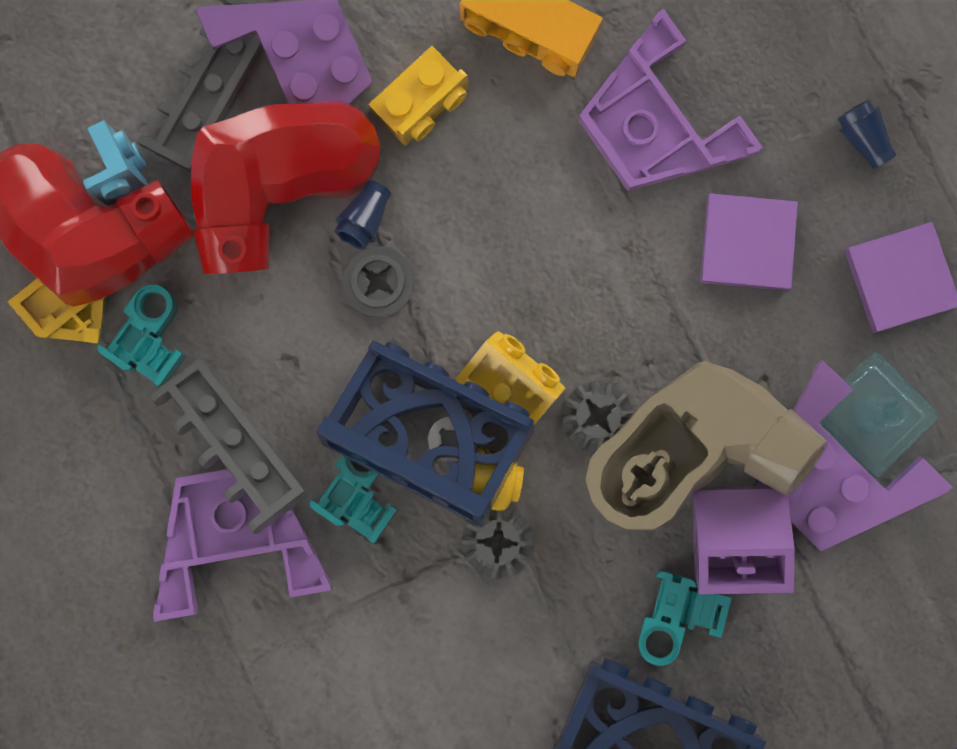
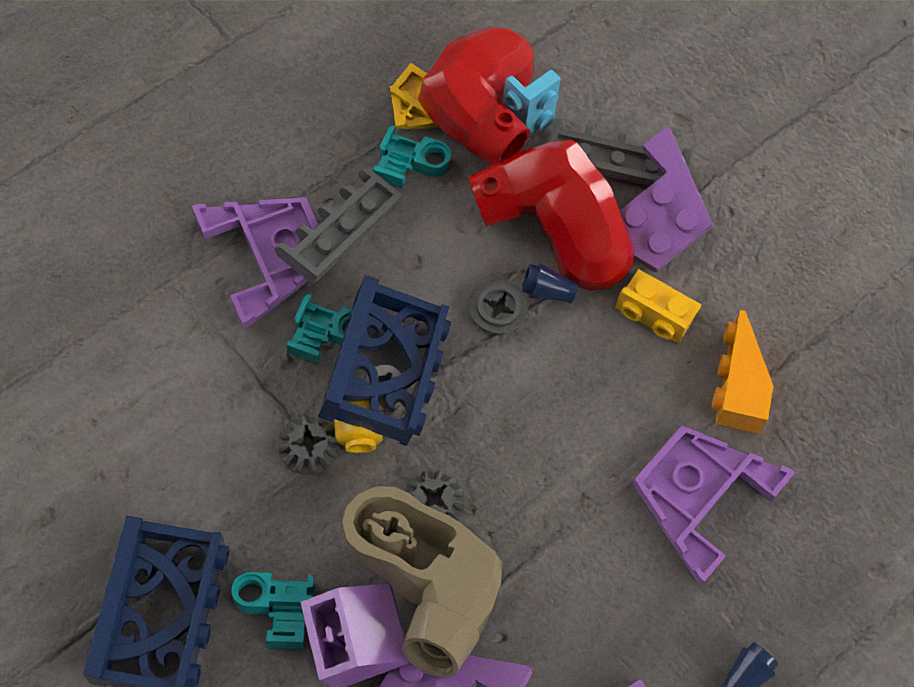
camera: 70 degrees right, 20 degrees down
(512, 375) = (449, 423): yellow bracket -> none
(748, 242) = (619, 593): medium lavender tile -> none

